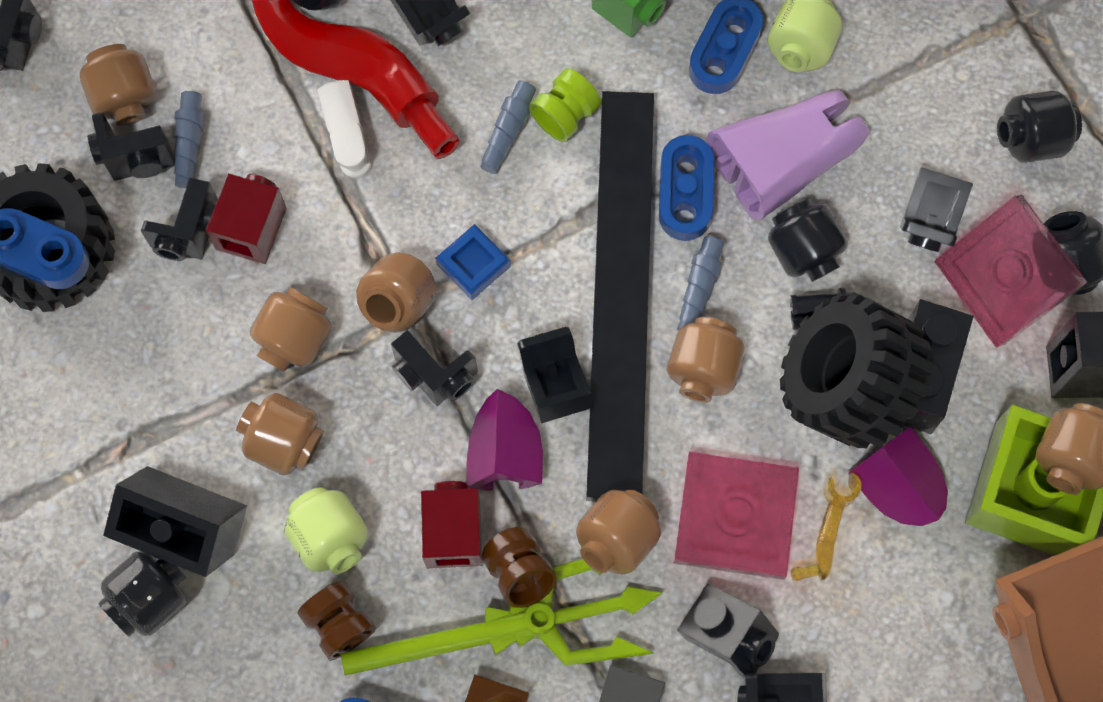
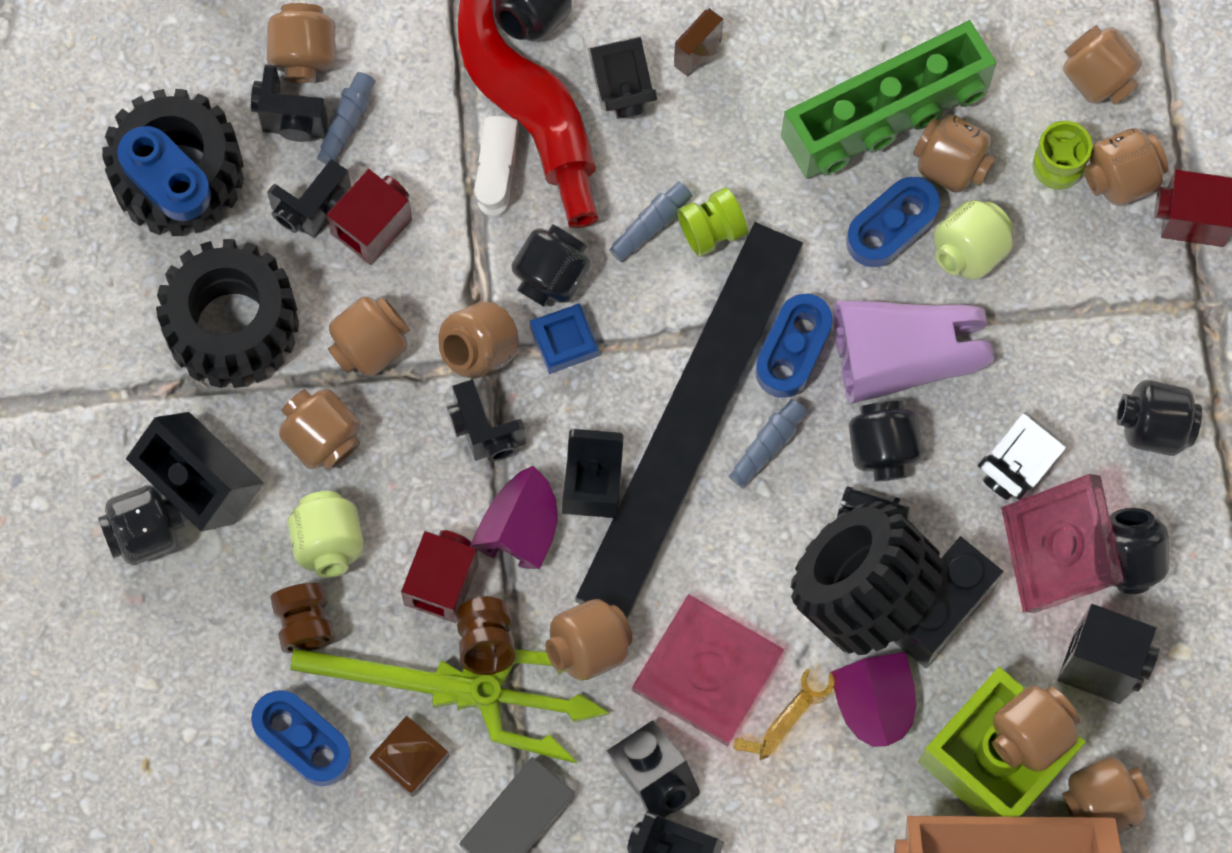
camera: 20 degrees right, 0 degrees up
(119, 329) = (222, 273): none -> black tyre
(434, 199) = (550, 265): none -> black head
(706, 359) = (739, 514): medium nougat head -> none

